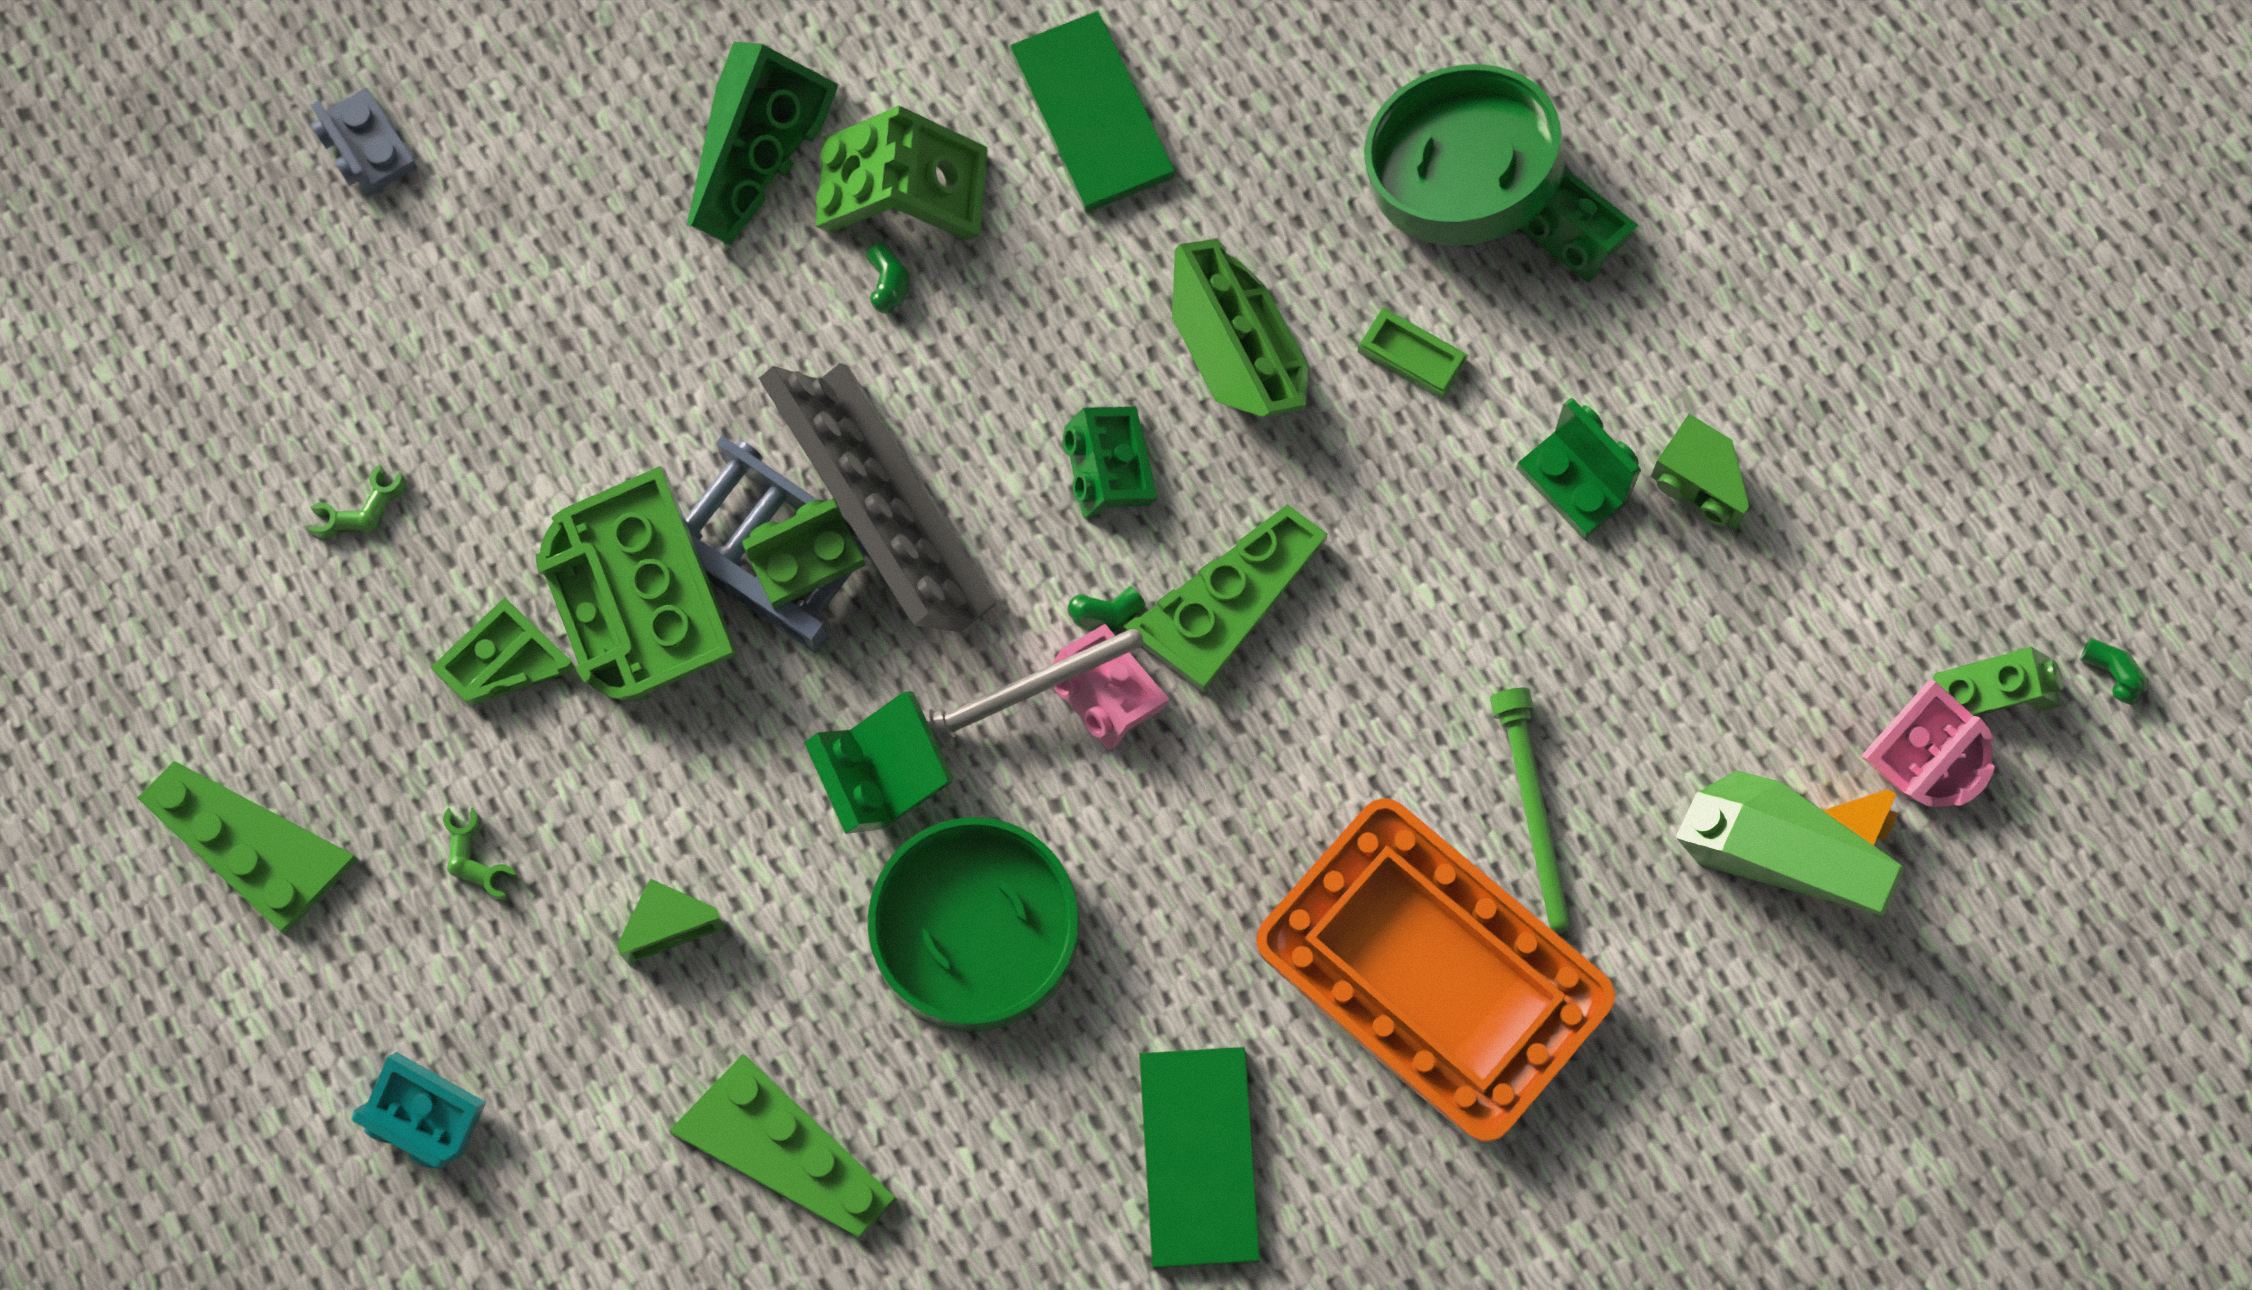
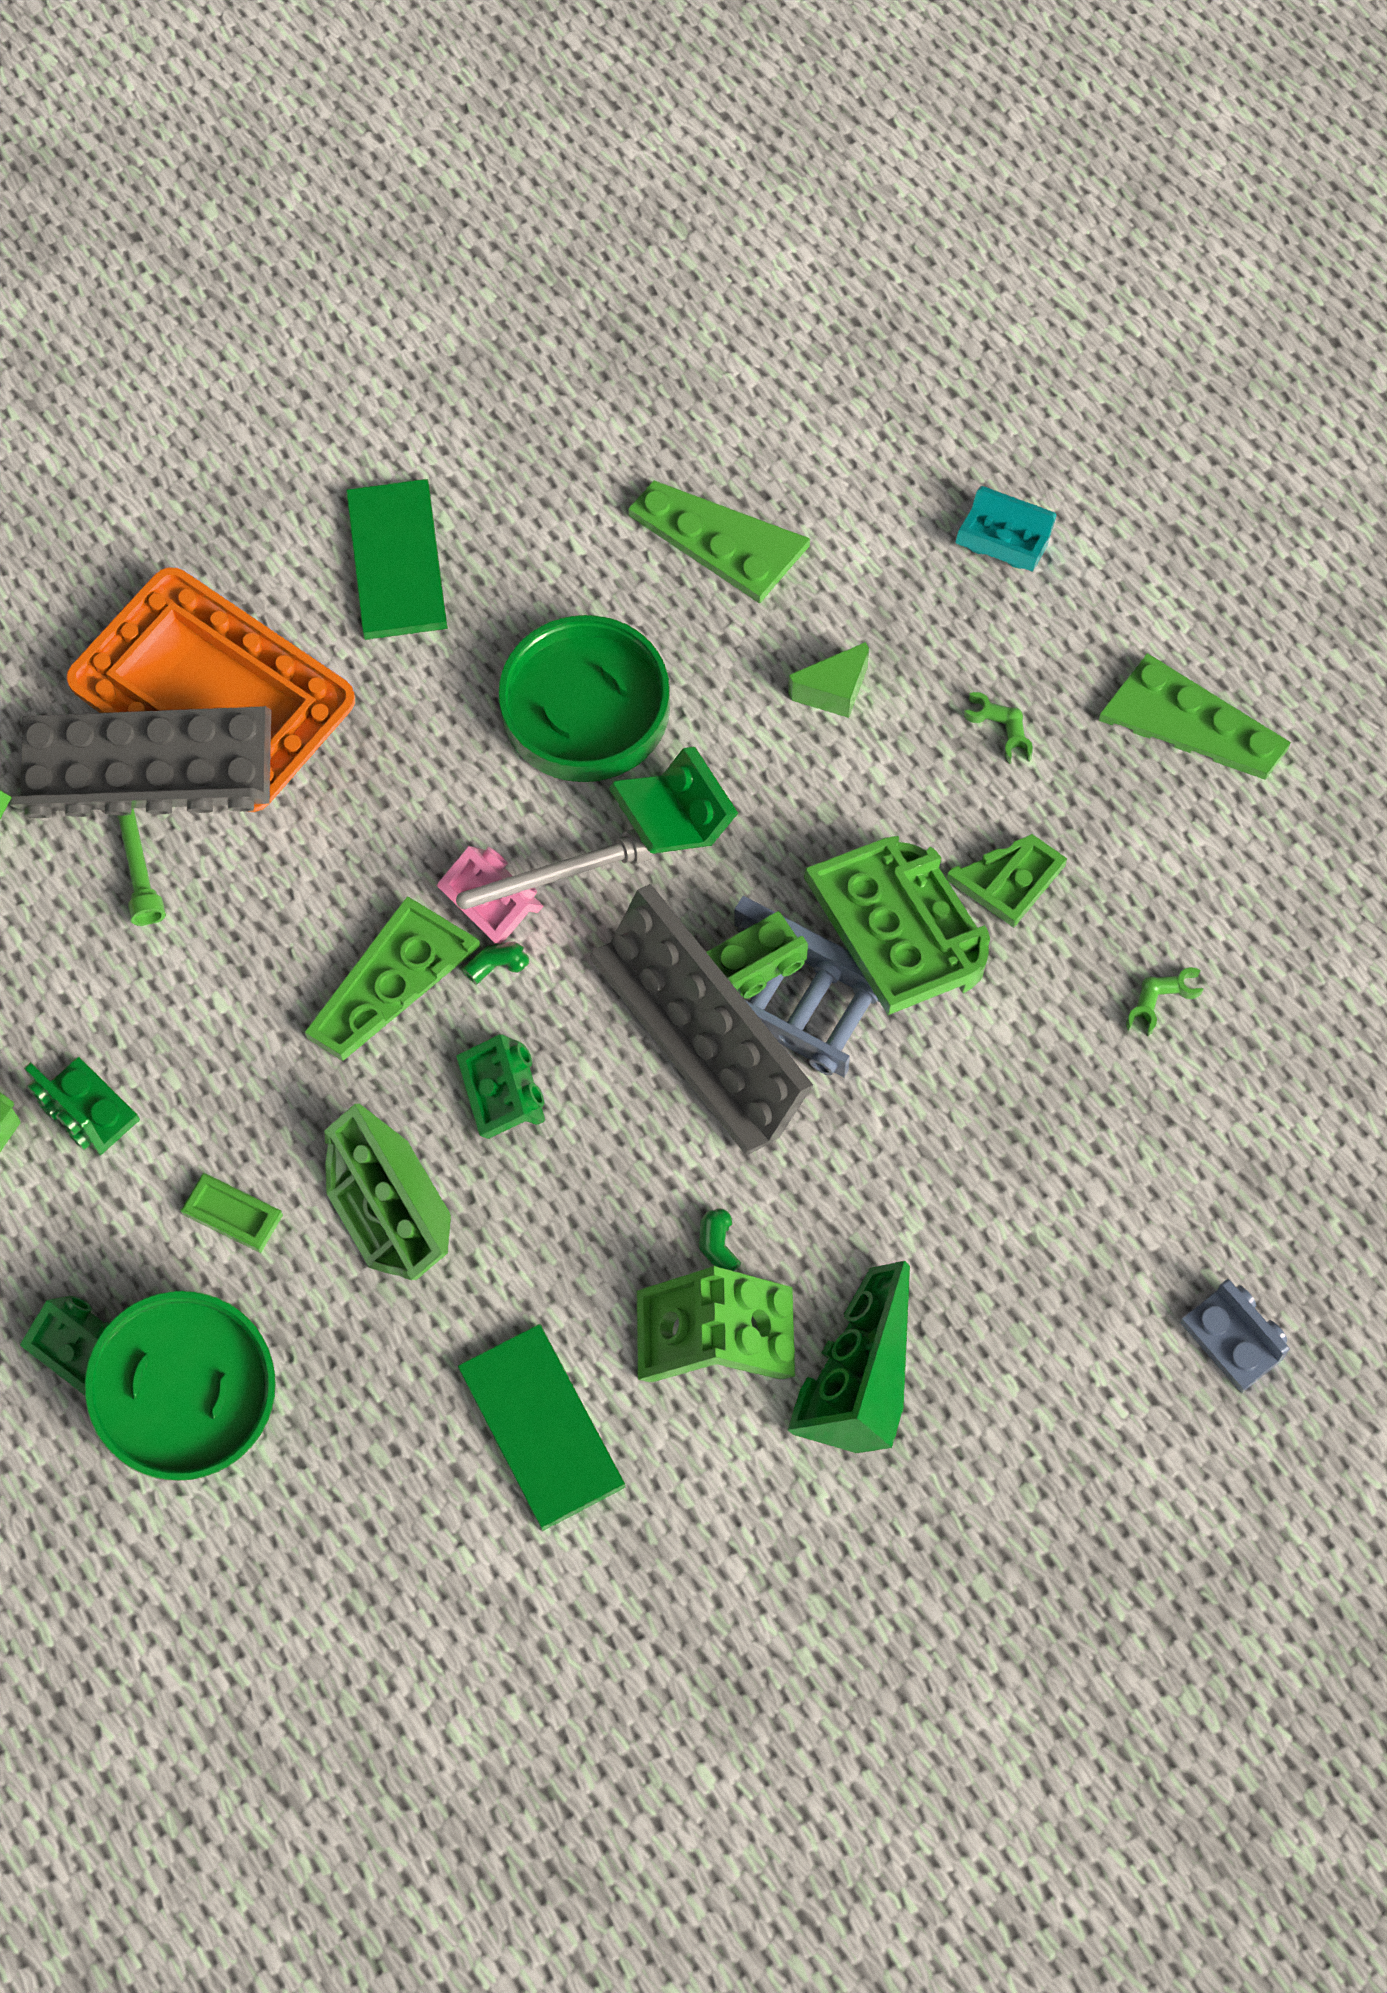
camera: 175 degrees right, 5 degrees down
(1515, 862) = (145, 761): none -> dark grey bracket

